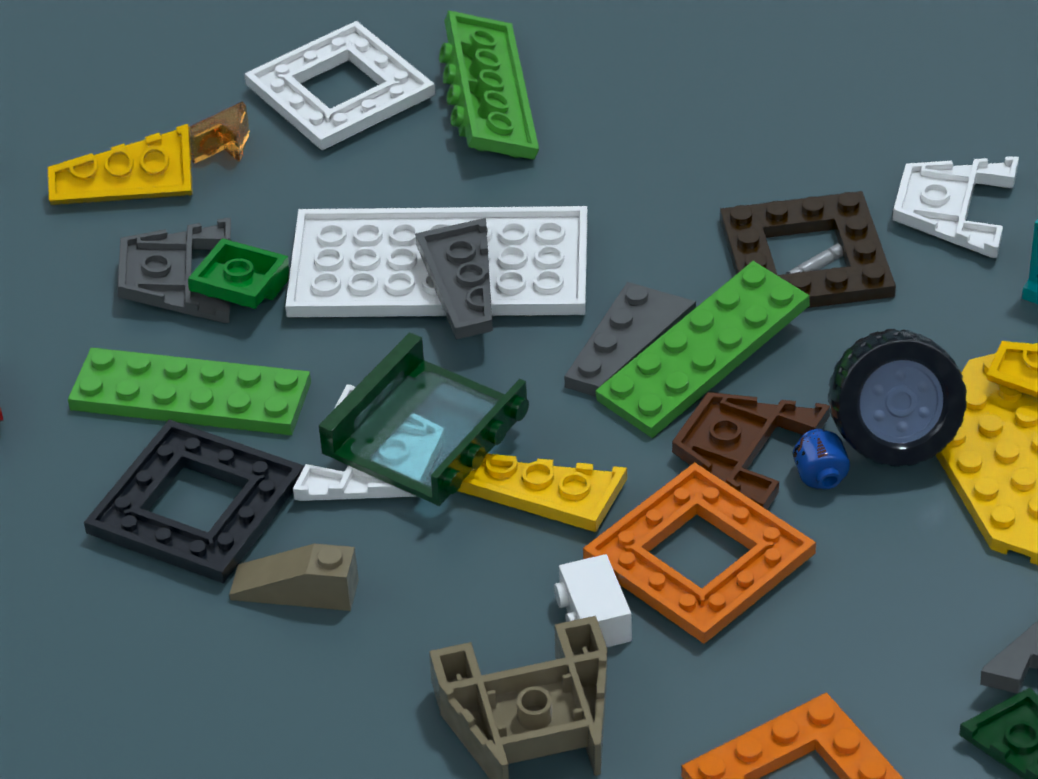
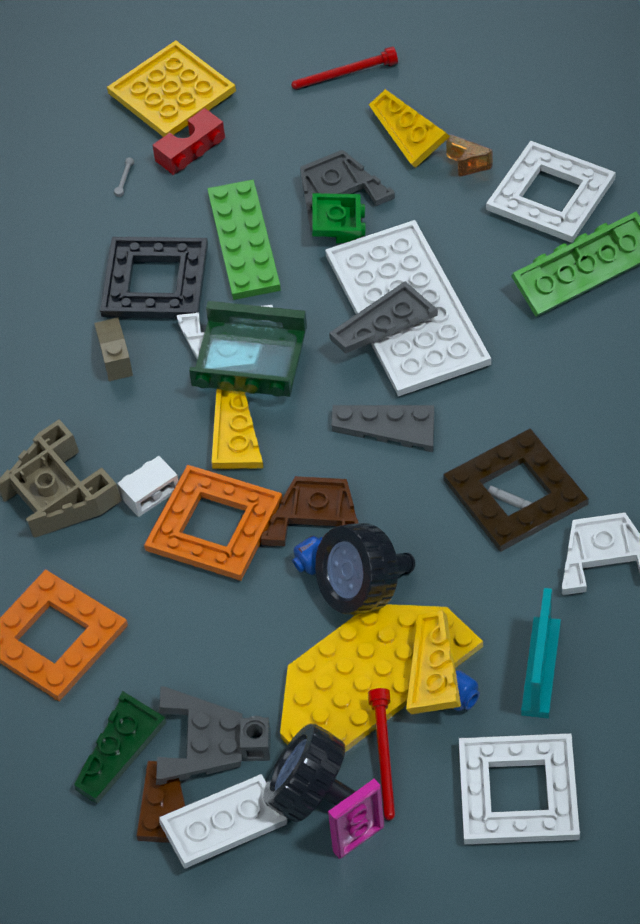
camera: 70 degrees right, 10 degrees up
(702, 348) = (389, 464): bright green plate -> none

